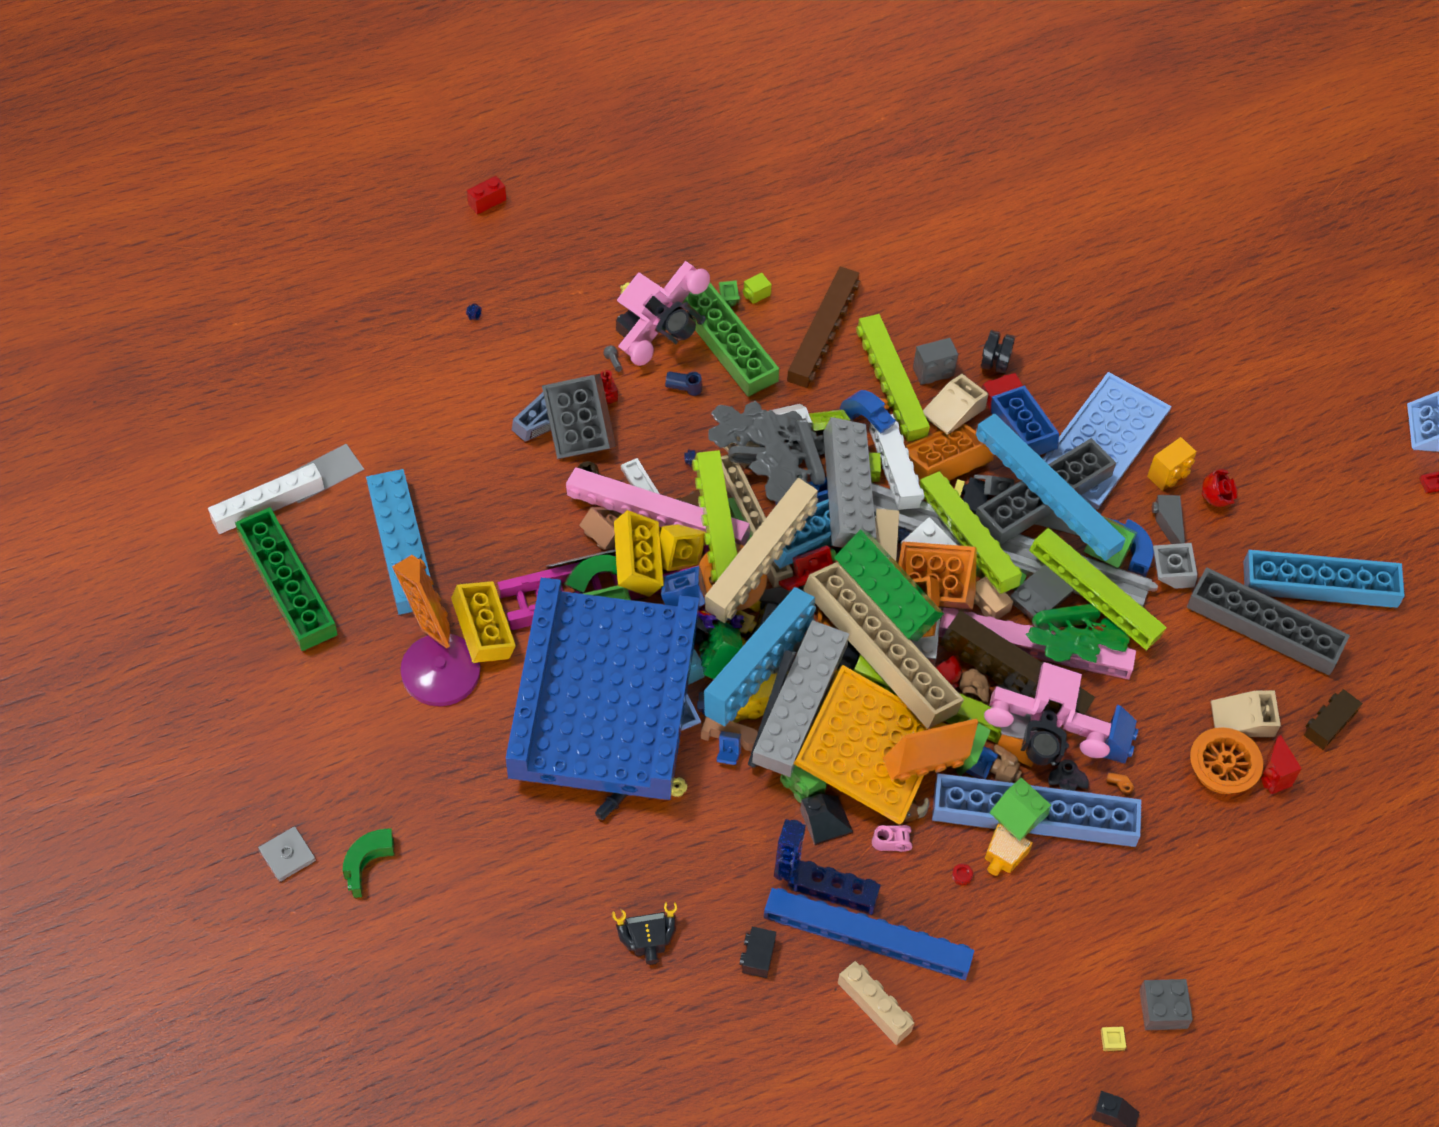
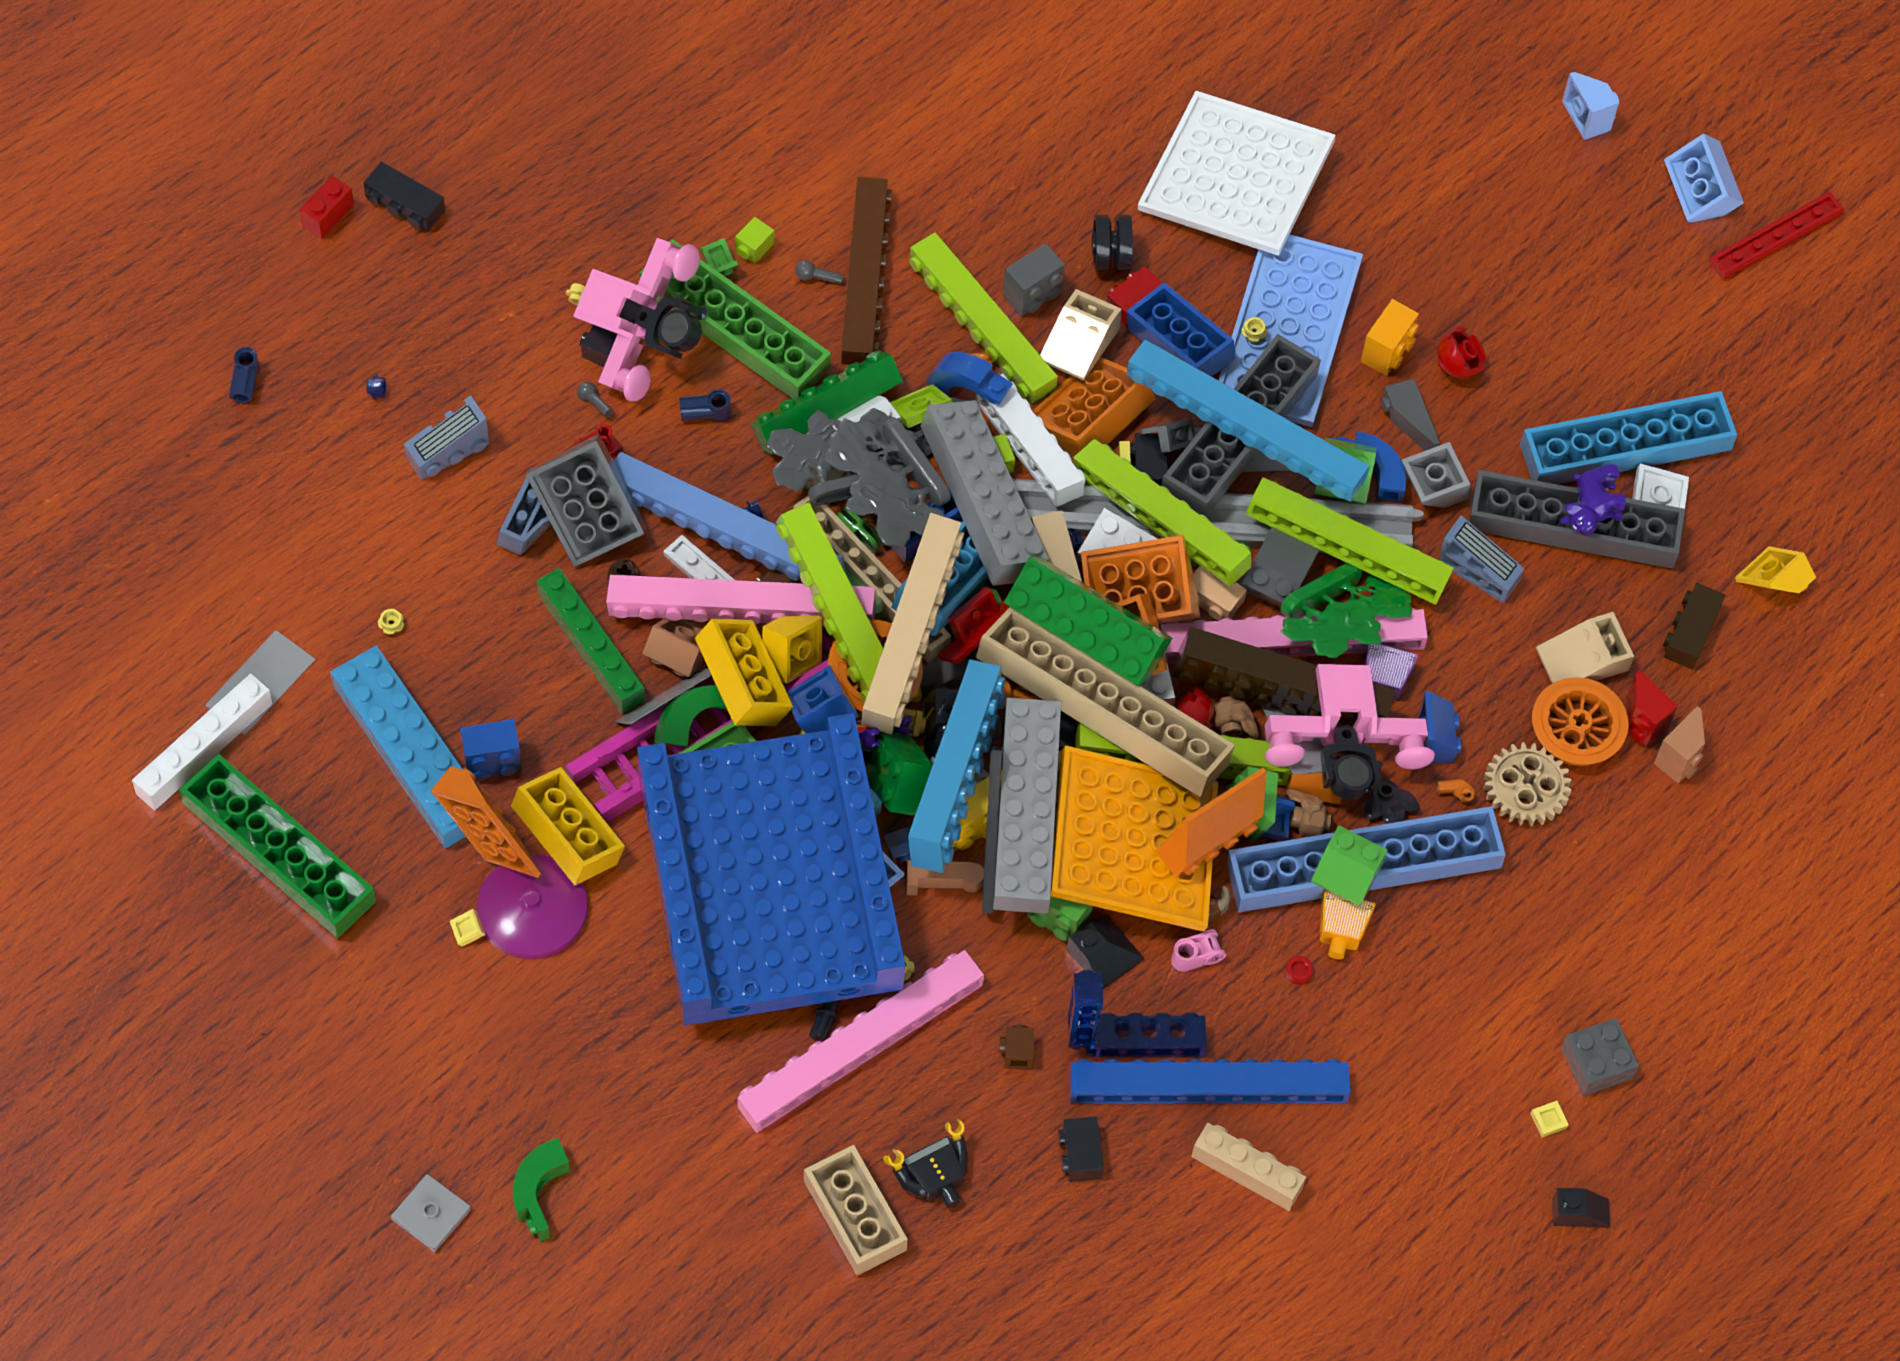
camera: 20 degrees left, 5 degrees up
(390, 670) = (467, 927): none -> light yellow tile
(391, 281) = (244, 375): none -> dark blue piece
(422, 454) = (391, 615): none -> light yellow plate
(452, 557) = (491, 749): none -> blue brick
(505, 356) = (449, 441): none -> sand blue wedge
(538, 202) = (404, 197): none -> black brick
(548, 508) = (591, 641): none -> green brick
(579, 944) = (855, 1210): none -> tan brick
(629, 827) = (860, 1040): none -> bright pink brick
(656, 447) = (707, 515): none -> medium blue brick
(729, 747) = (950, 897): blue bracket -> none
(739, 866) = (1018, 1047): none -> reddish brown brick
(758, 487) = (861, 528): none -> bright green arm
(774, 397) = (833, 397): none -> green brick
(784, 316) = (806, 270): none -> dark grey bar
(1077, 429) = (1254, 324): none -> light yellow plate
(1099, 684) = (1390, 666): none -> medium lavender torso
(1100, 332) = (1236, 172): none -> white plate
(1188, 629) = (1480, 560): none -> sand blue wedge
(1190, 789) = (1527, 784): none -> tan gear
(1284, 609) = (1594, 500): none -> dark purple animal
(1297, 800) = (1683, 748): none -> nougat slope
(1337, 617) = (1660, 486): none -> white plate
(1364, 352) = (1590, 104): none -> light blue slope
(1409, 699) = (1778, 570): none -> yellow slope

